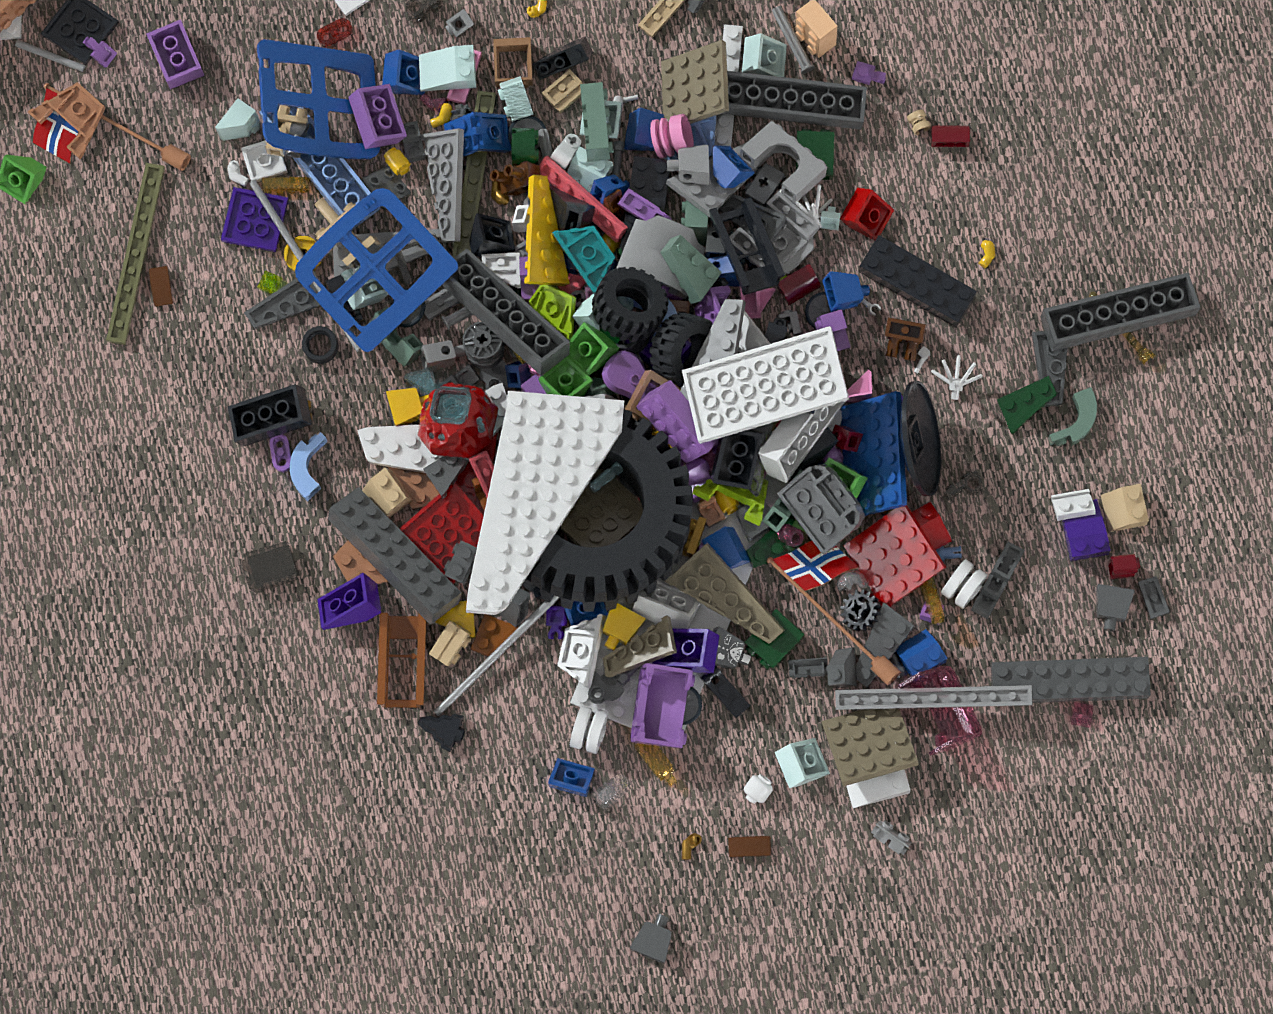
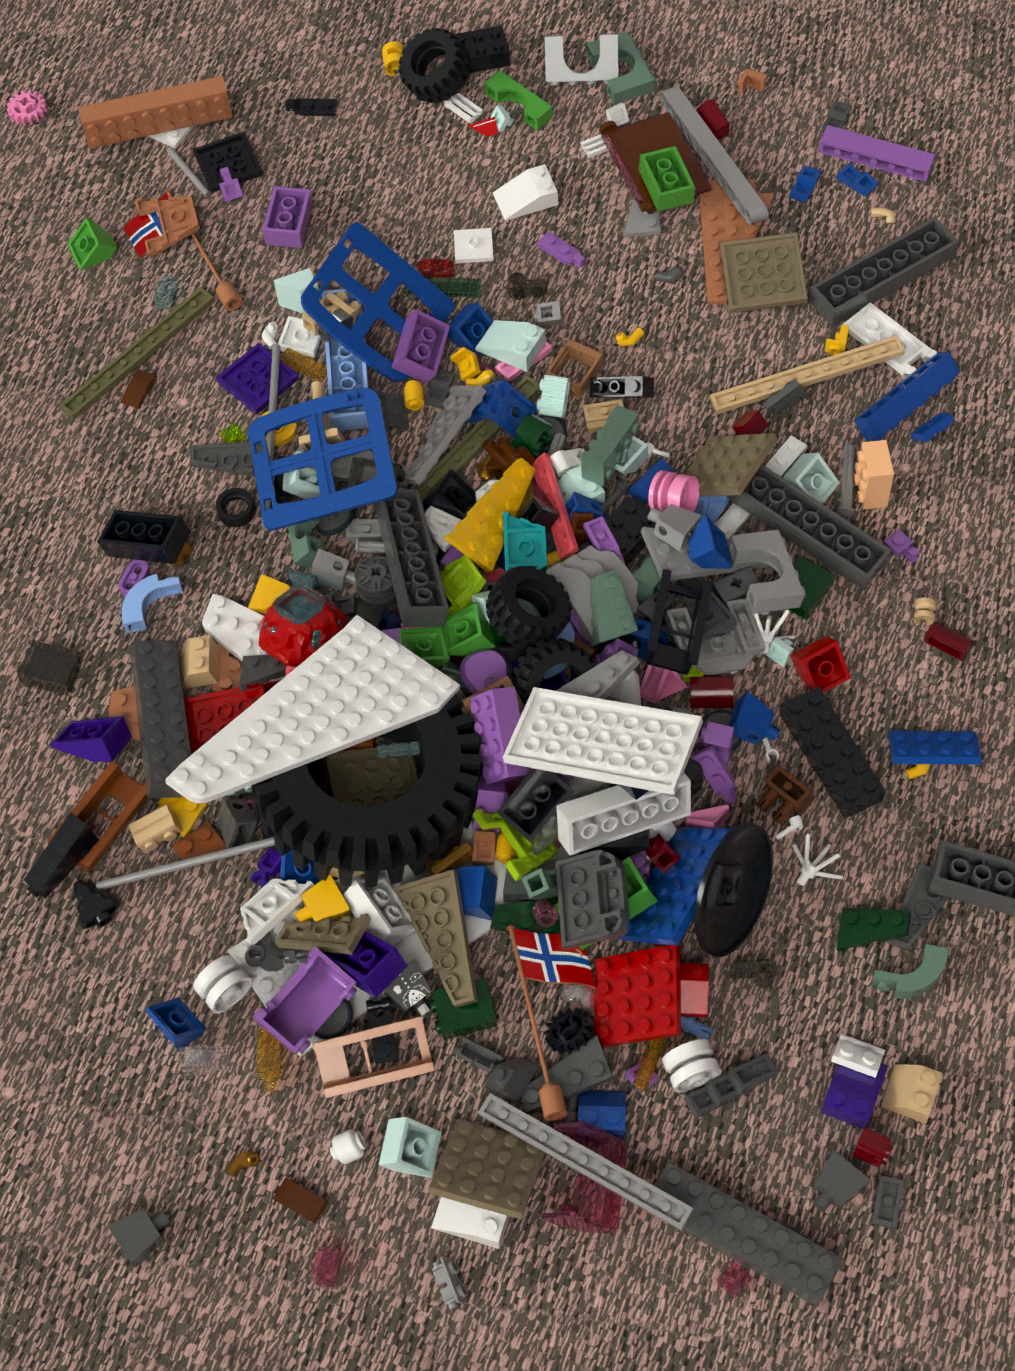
camera: 30 degrees right, 15 degrees down
(120, 182) = (161, 291): none -> clear light blue beam
(361, 39) = (454, 286): none -> clear green tile
(395, 710) = (60, 856): none -> black slope
(421, 108) = (466, 362): none -> yellow bracket
(688, 36) = (750, 423): none -> dark red brick
(711, 741) = (335, 1069): none -> piece
(800, 879) = (327, 1267): none -> clear pink brick
(850, 351) = (716, 773): none -> medium lavender hinge
(990, 233) = (934, 747): none -> blue plate

